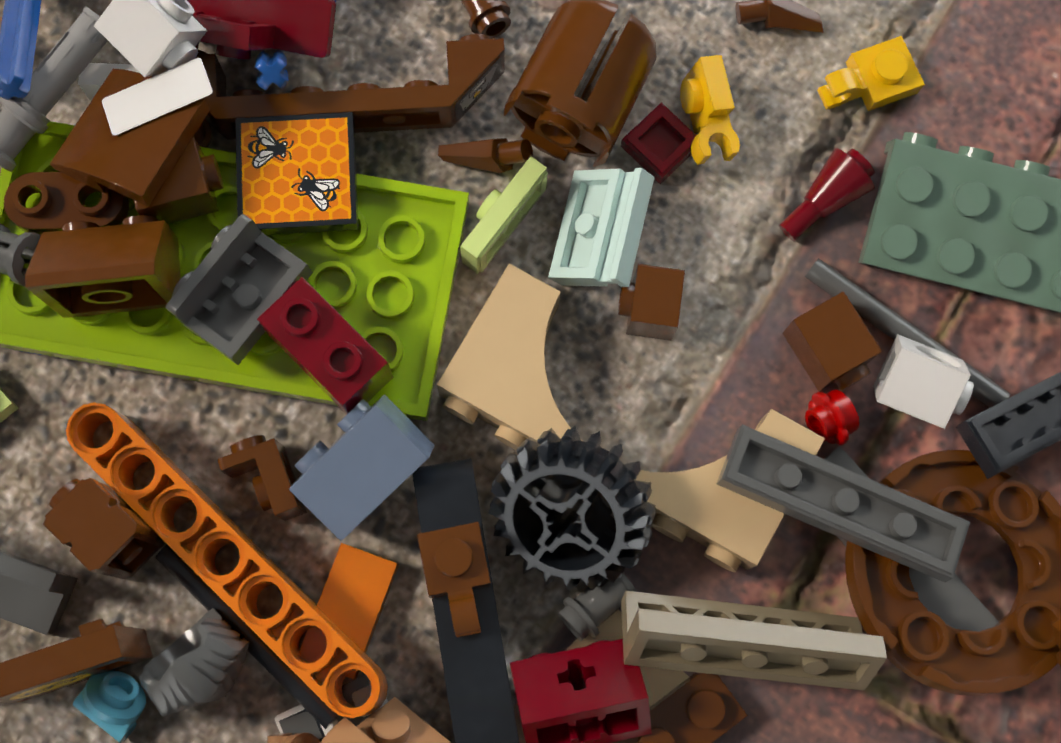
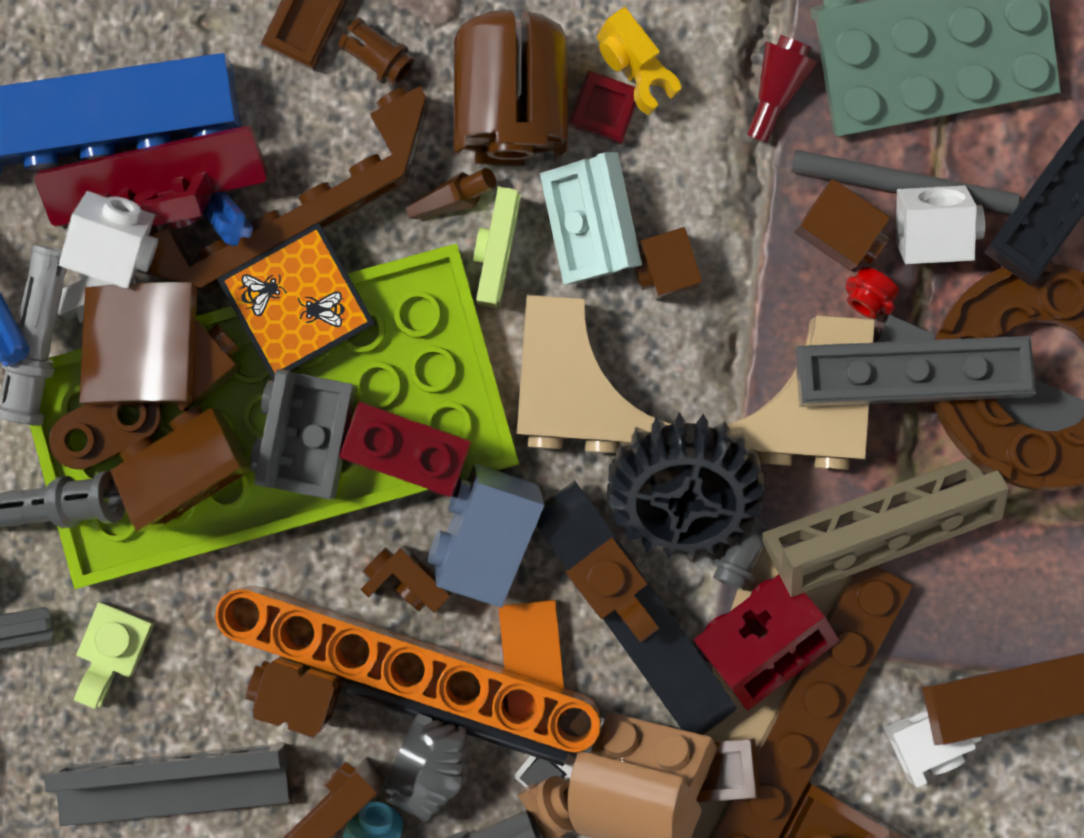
camera: 20 degrees left, 10 degrees up
(157, 96) = (147, 301): white sticker -> none

